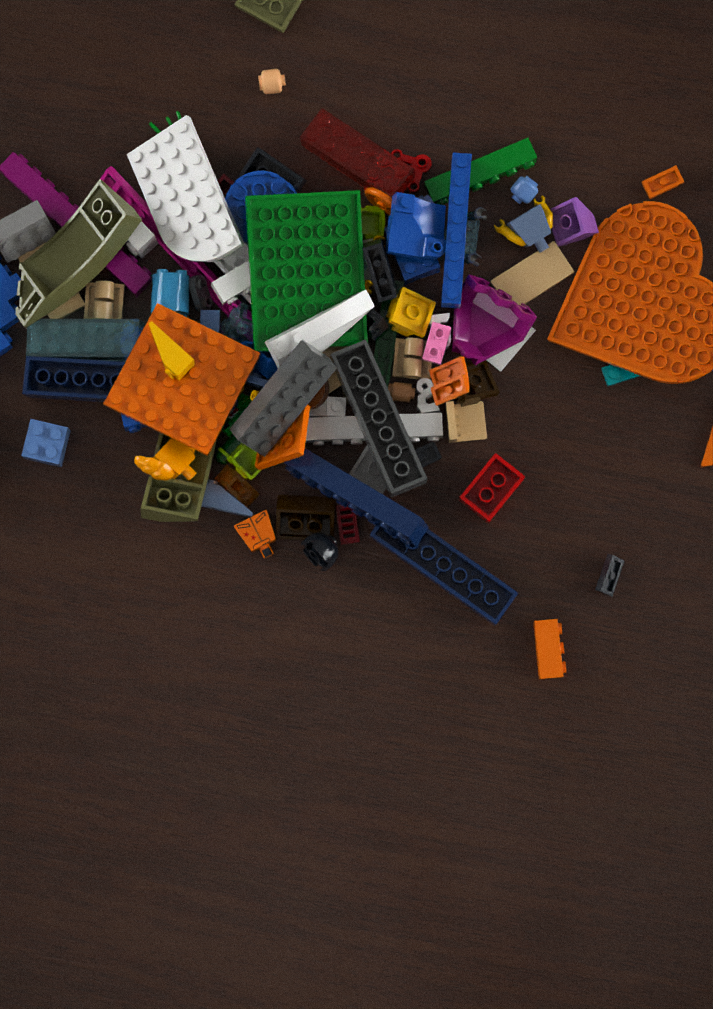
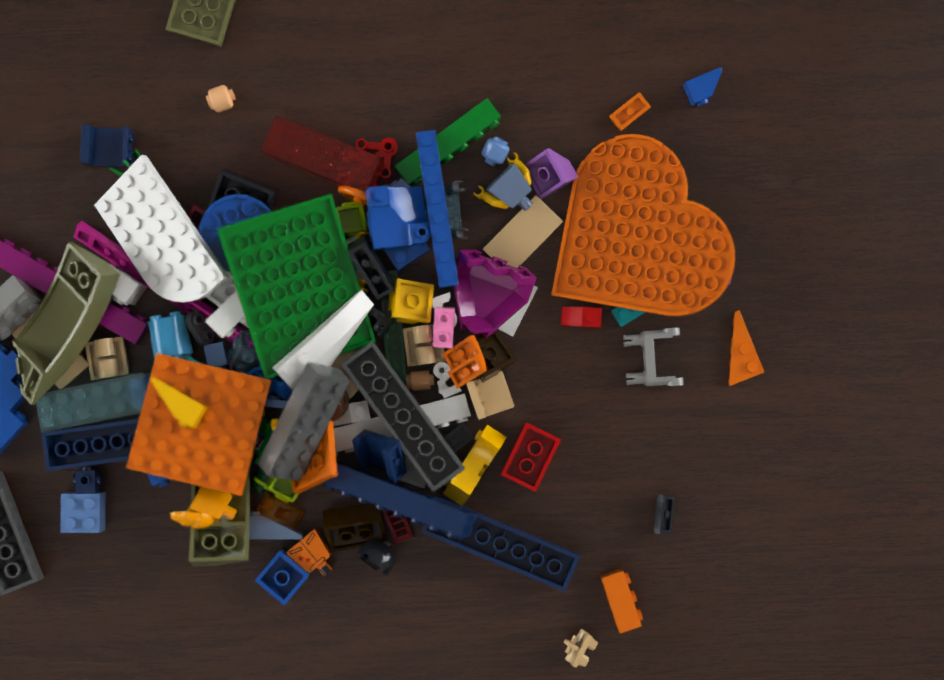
camera: 15 degrees left, 5 degrees up
(58, 419) = (87, 480): none -> dark blue brick
(151, 102) = (106, 146): none -> dark blue panel
(225, 548) = (282, 577): none -> blue brick
(347, 448) = (380, 452): none -> dark blue panel
(438, 482) = (479, 457): none -> yellow brick
(495, 684) = (577, 648): none -> tan hips
(572, 367) = (581, 317): none -> red slope
(624, 439) = (646, 340): none -> light grey connector

